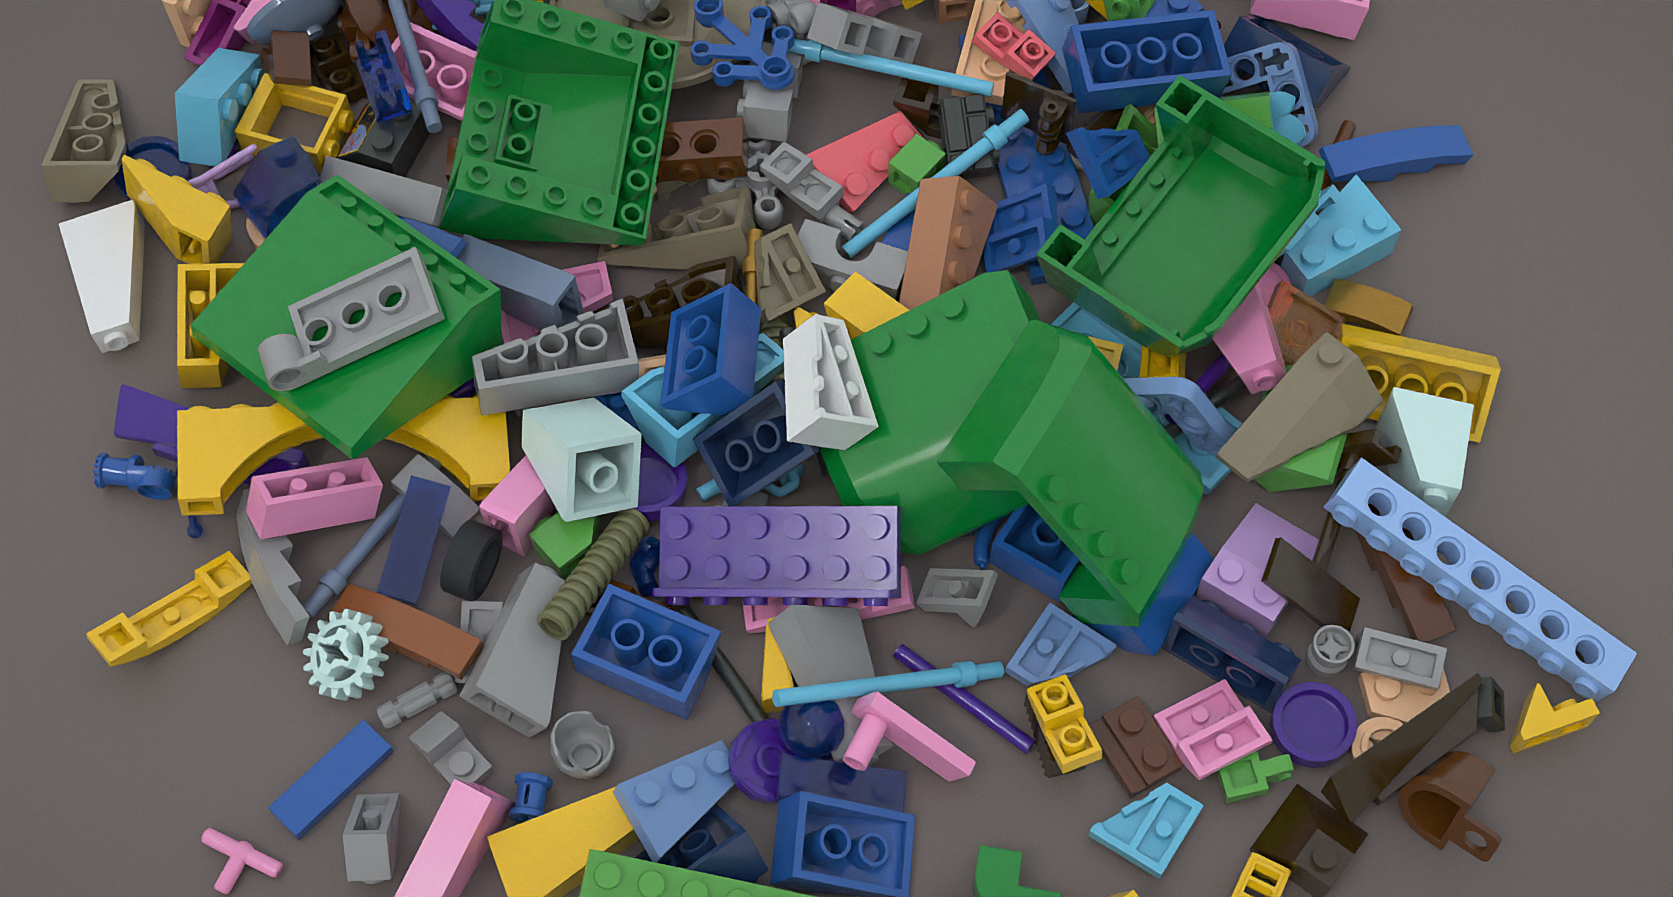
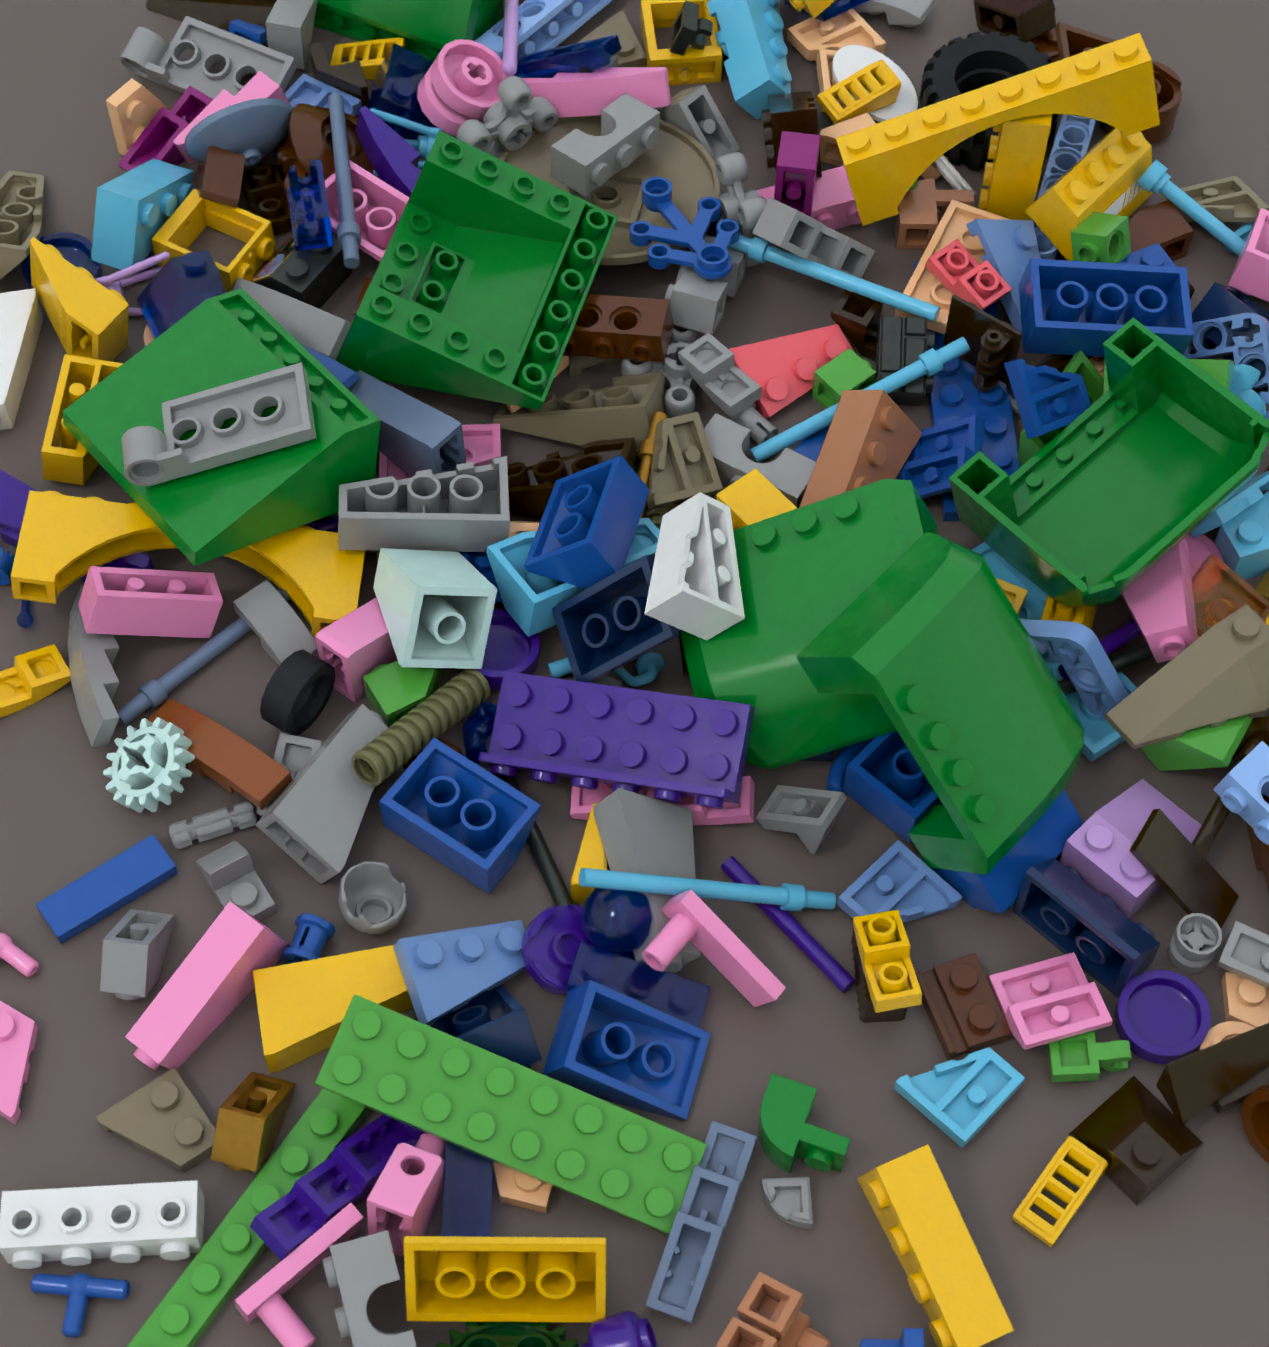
camera: 10 degrees right, 5 degrees down
(414, 539) = (244, 663): clear blue plate -> none

